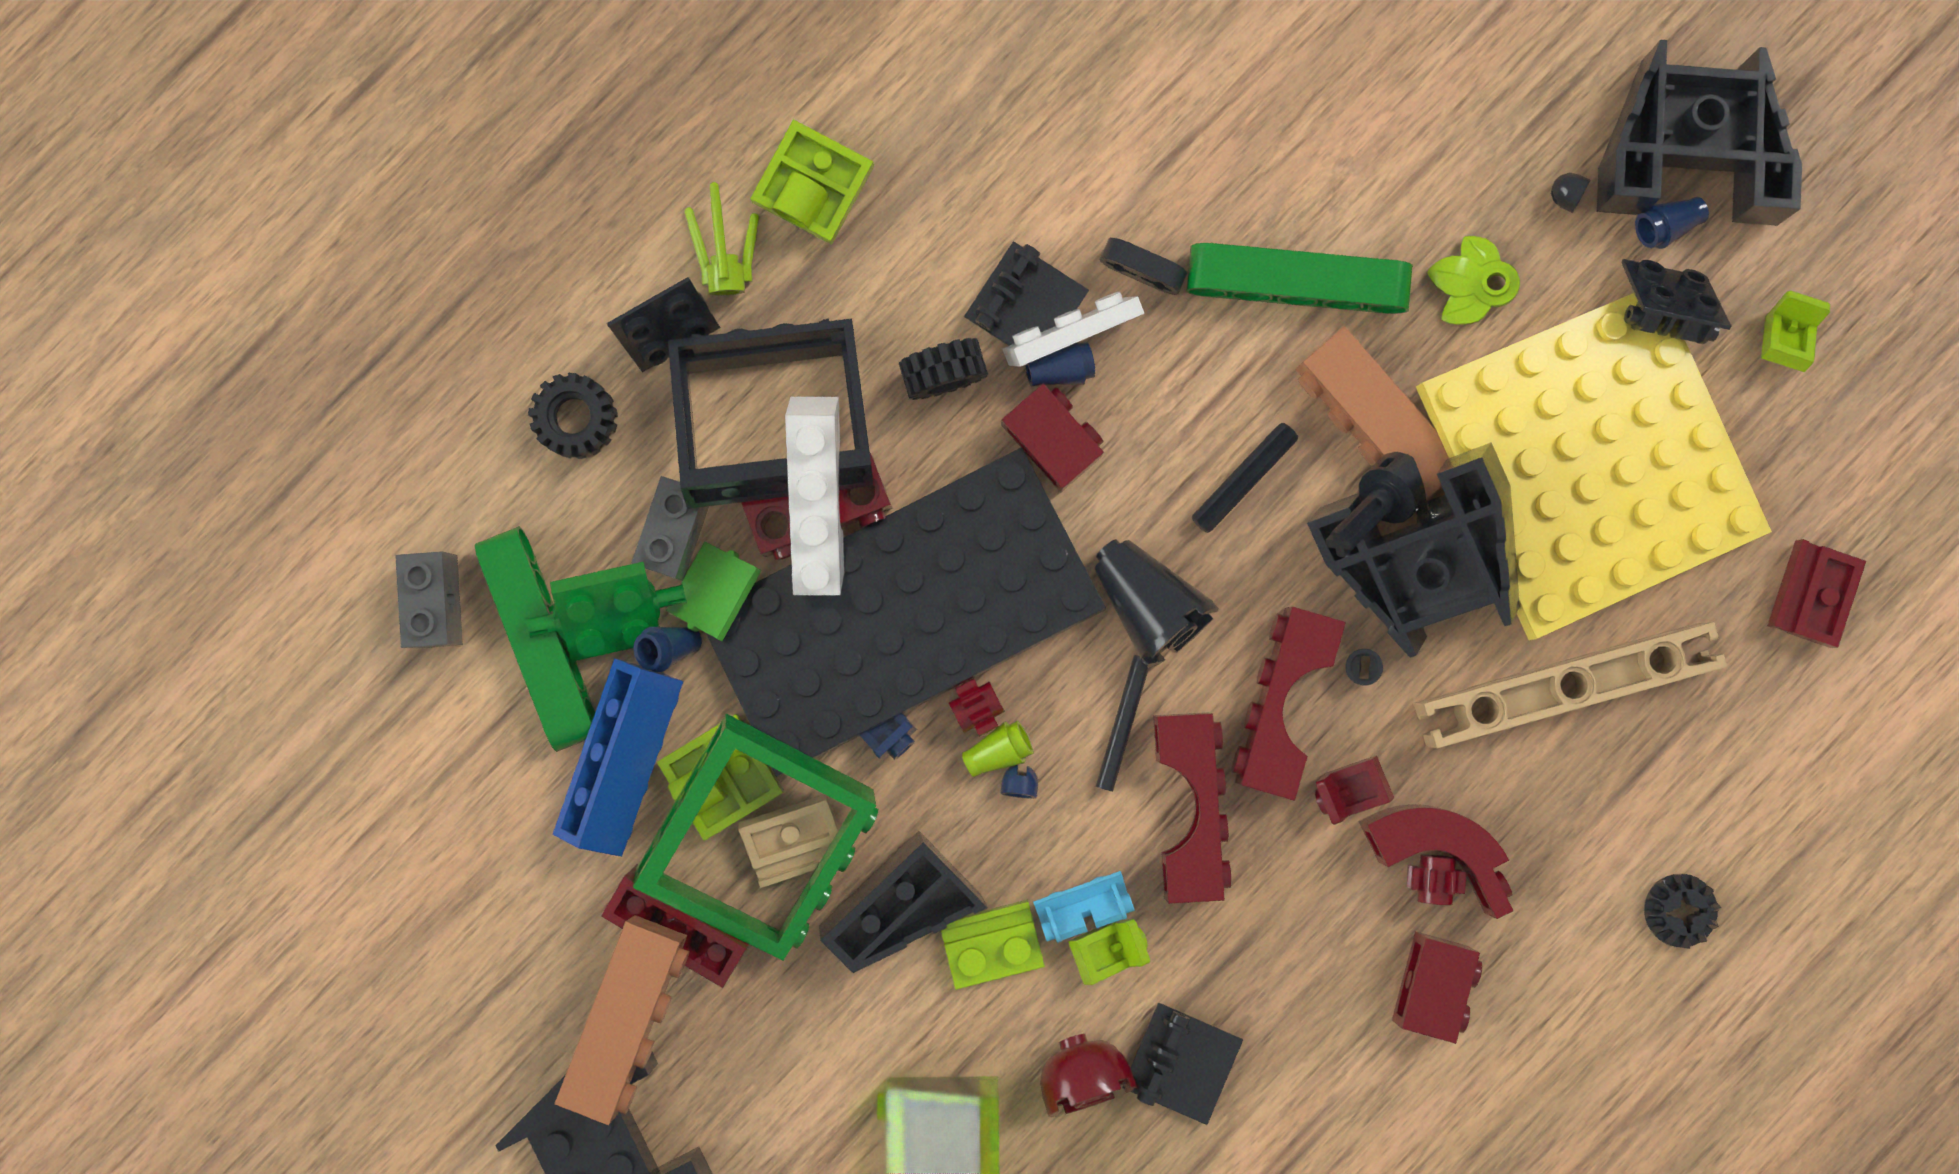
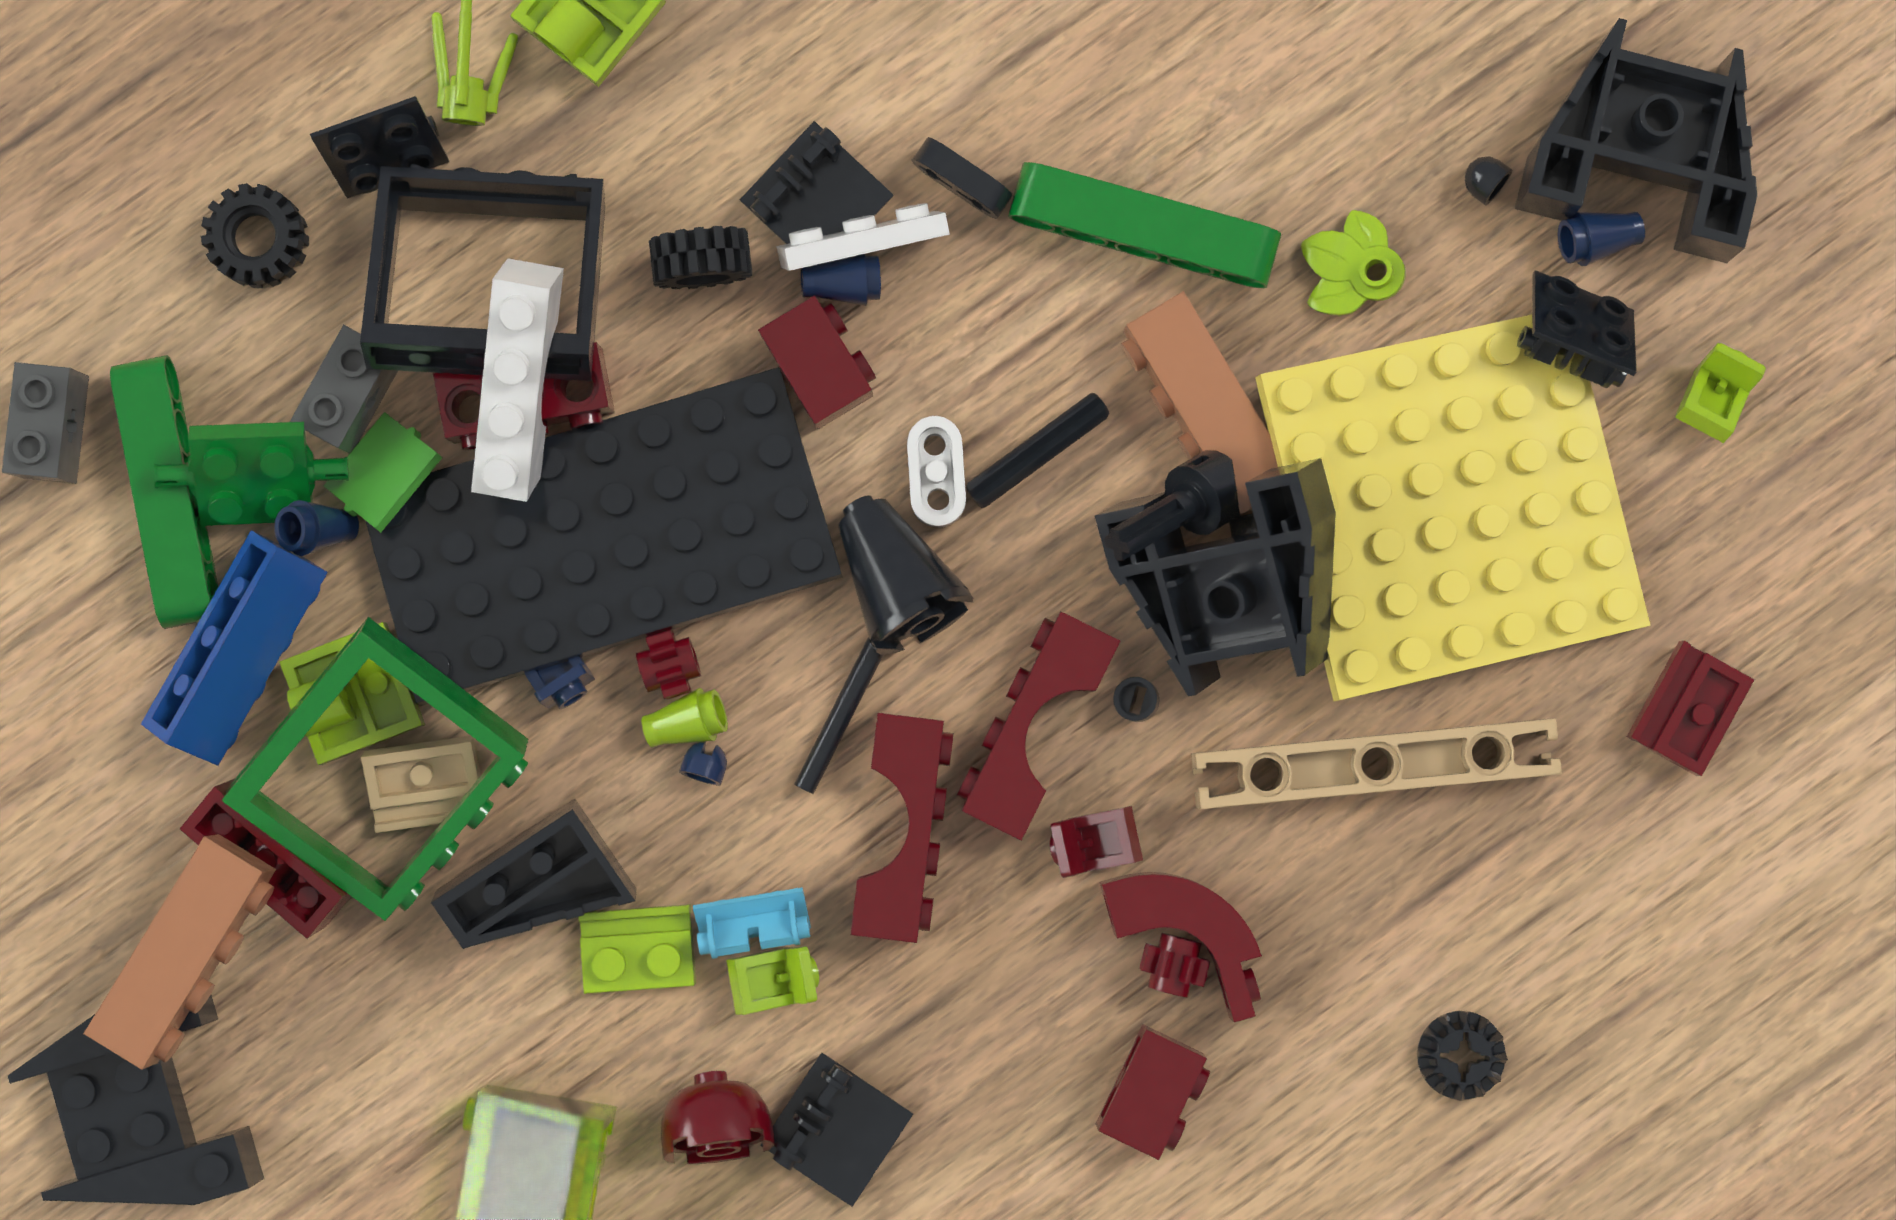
camera: 10 degrees right, 0 degrees up
(1166, 510) = (936, 472): none -> white plate

